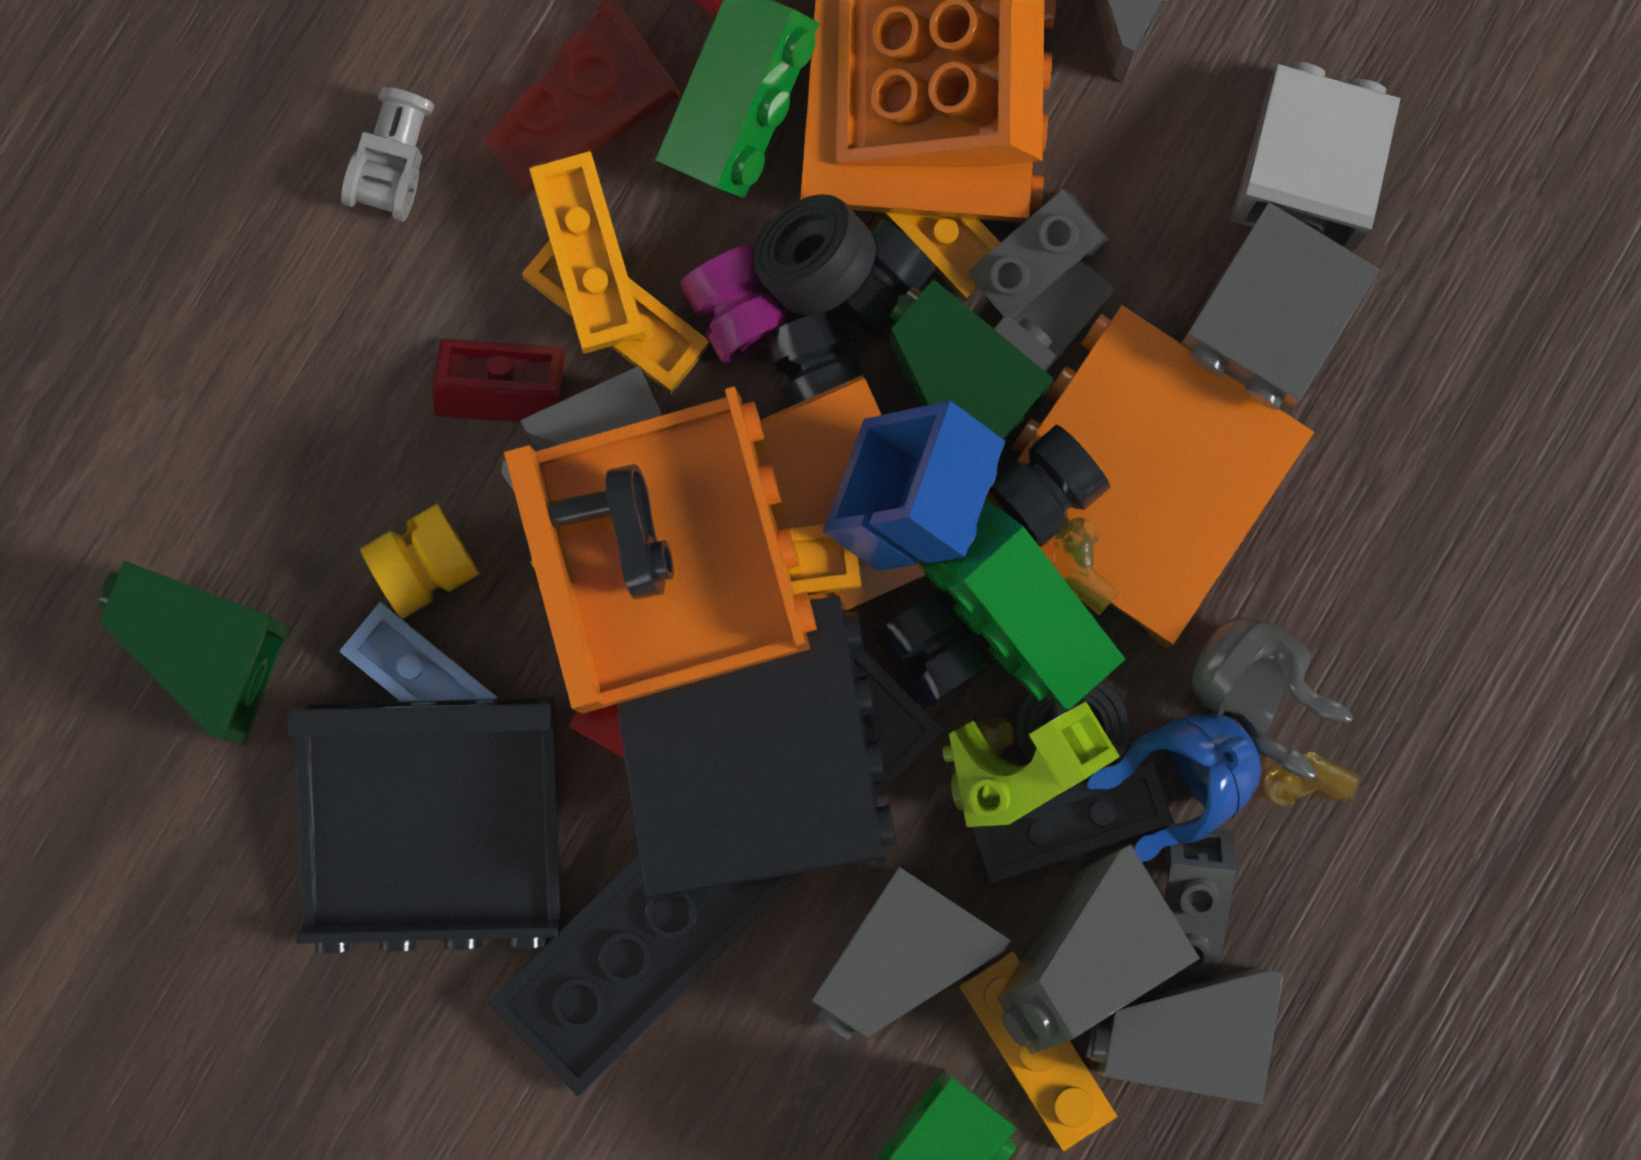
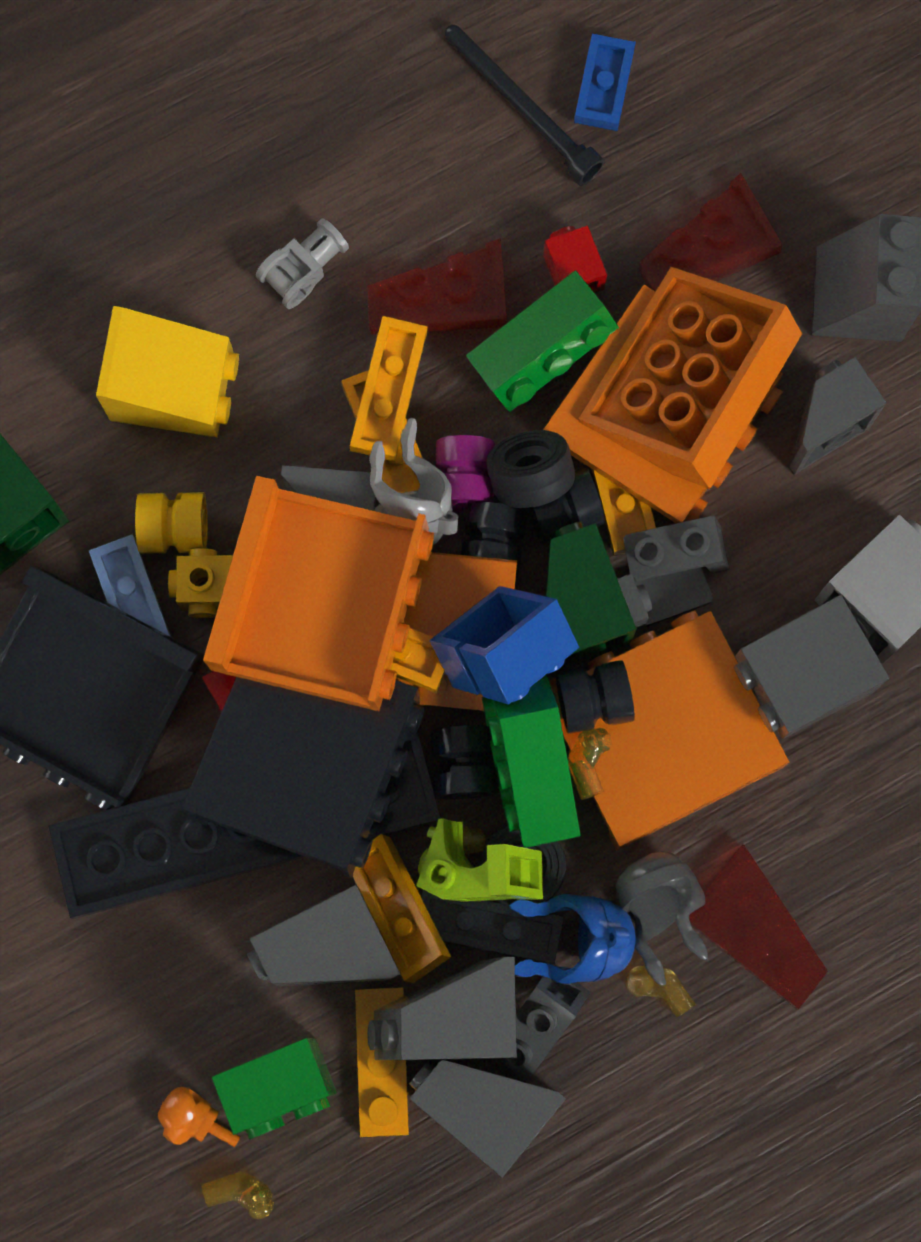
camera: 30 degrees right, 5 degrees down
(308, 385) = (165, 374): none -> yellow slope
(484, 594) = (191, 571): none -> yellow brick
(496, 380) = (287, 437): dark red slope -> none
(626, 499) = (315, 551): black piece -> none
(717, 363) = (432, 497): none -> light grey hair
(964, 867) = (399, 911): none -> light orange plate
(1385, 649) = (757, 930): none -> clear red wing

